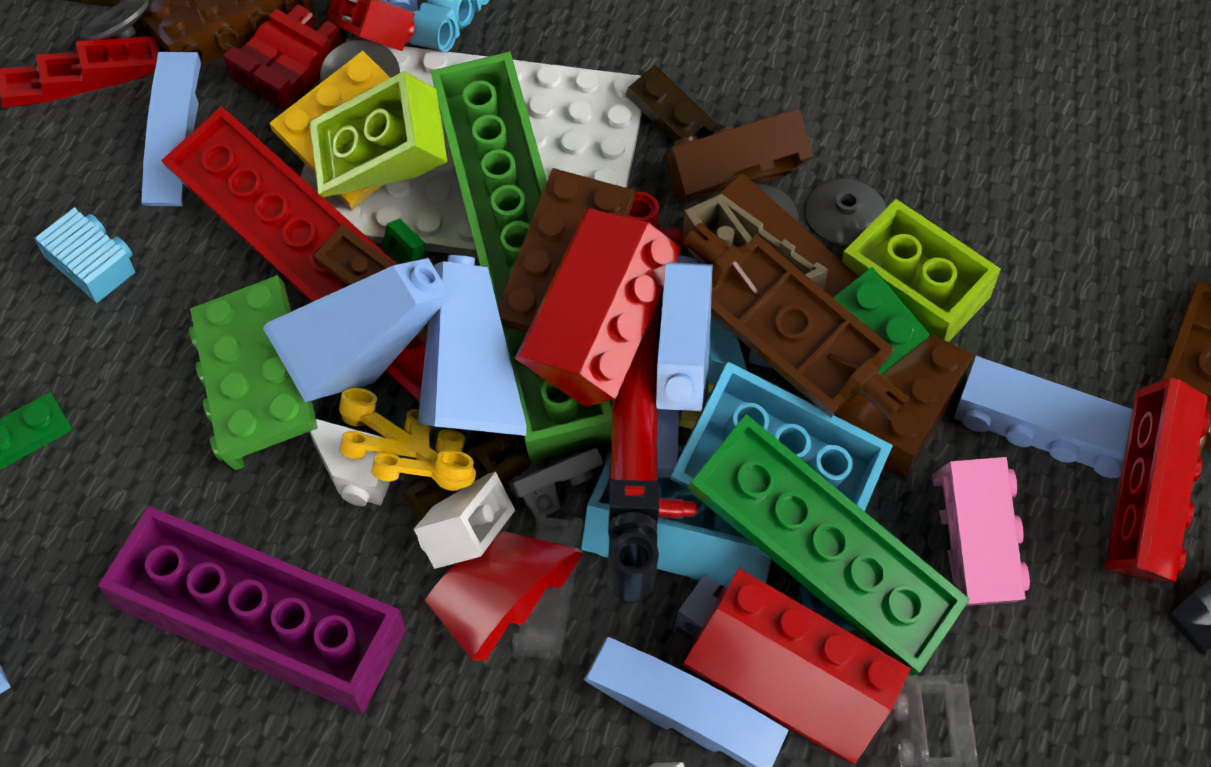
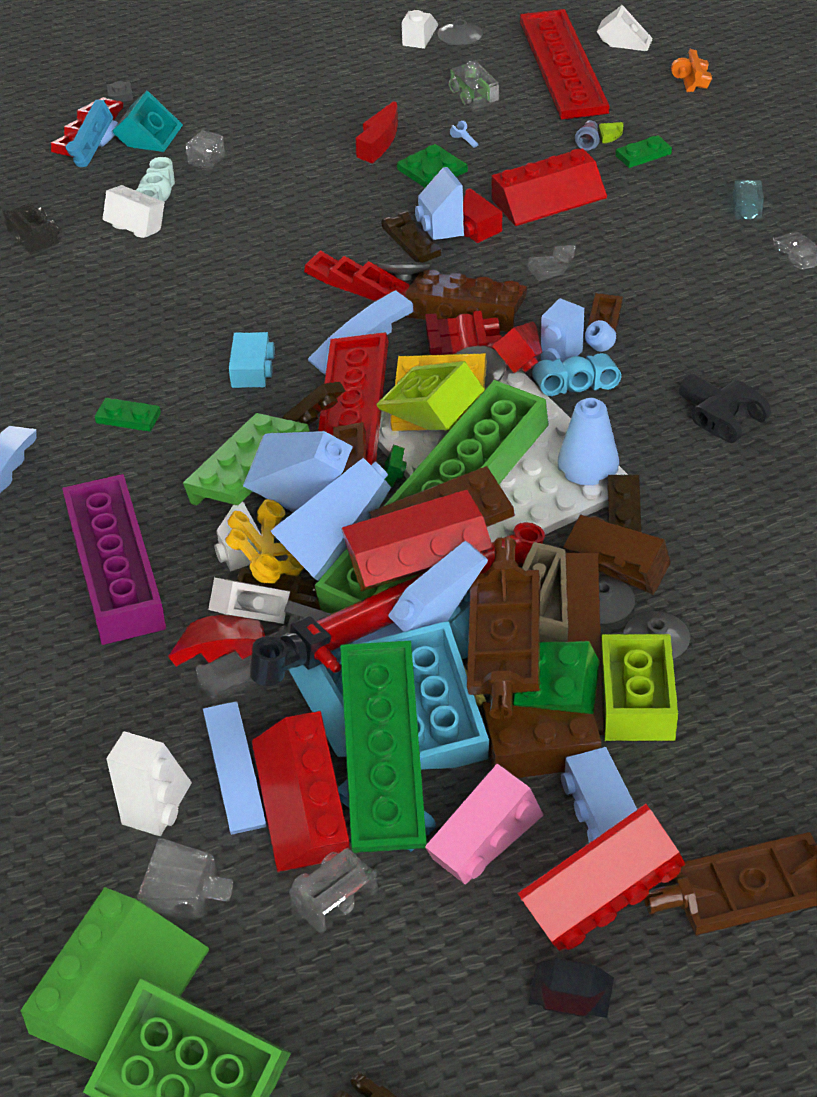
camera: 50 degrees right, 15 degrees down
(251, 259) = (320, 399): none -> dark brown hinge
(582, 71) = (589, 445): none -> light blue cone

